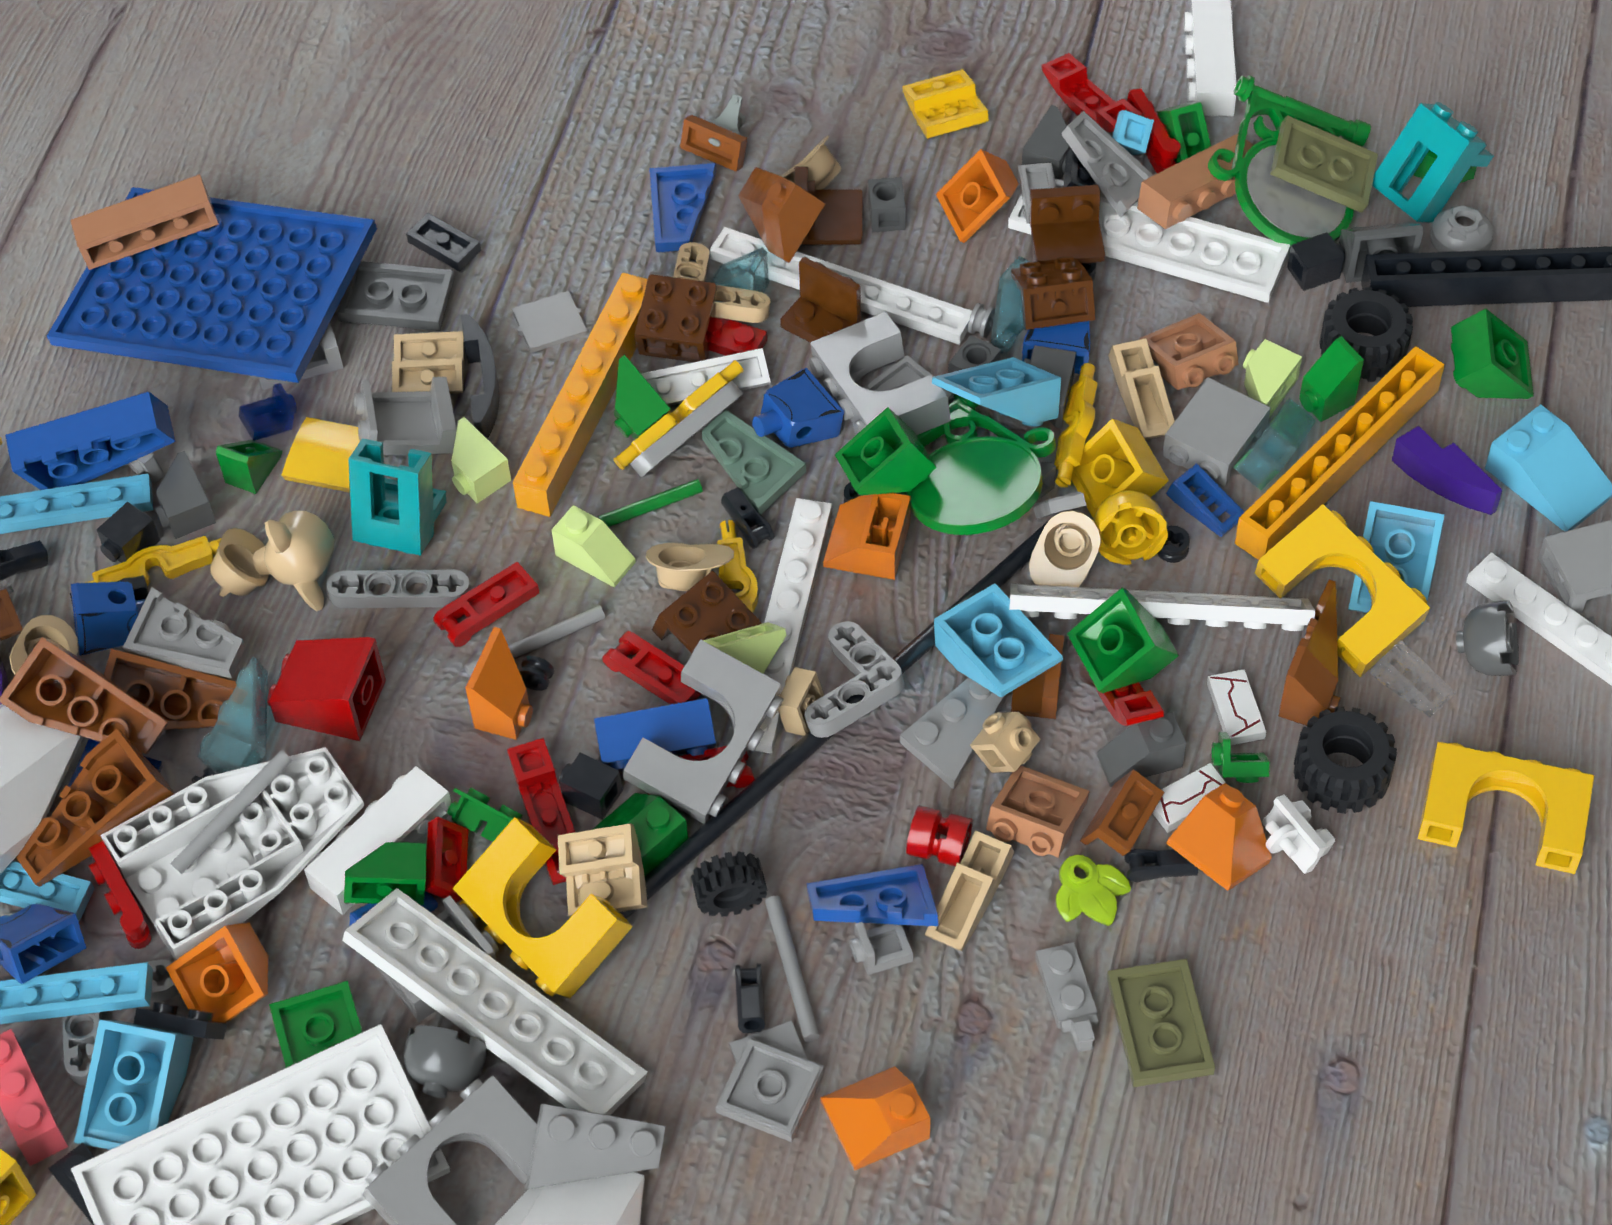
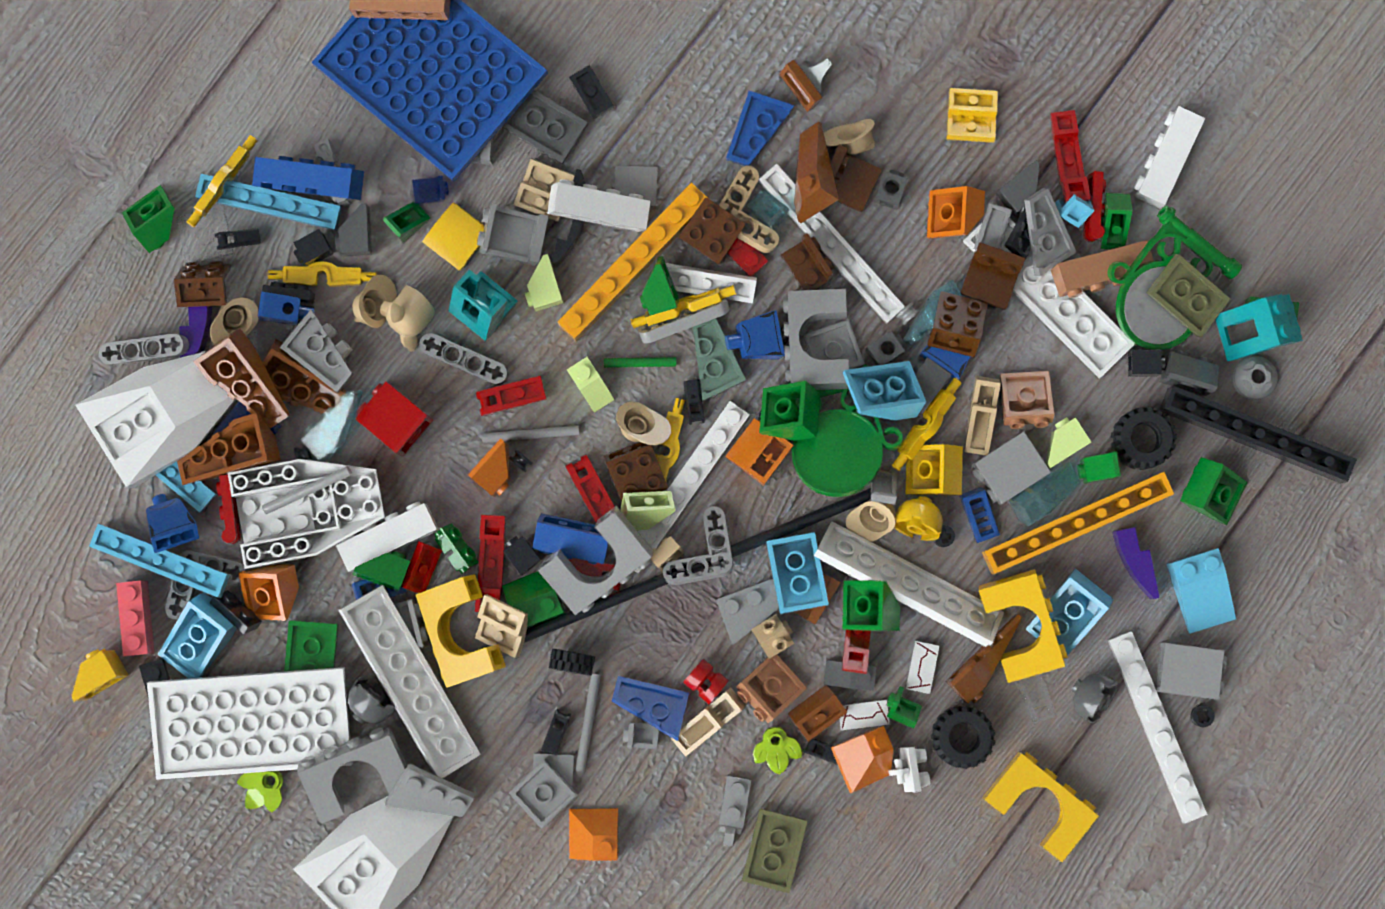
camera: 30 degrees right, 30 degrees up
(509, 337) = (598, 206): none -> white brick

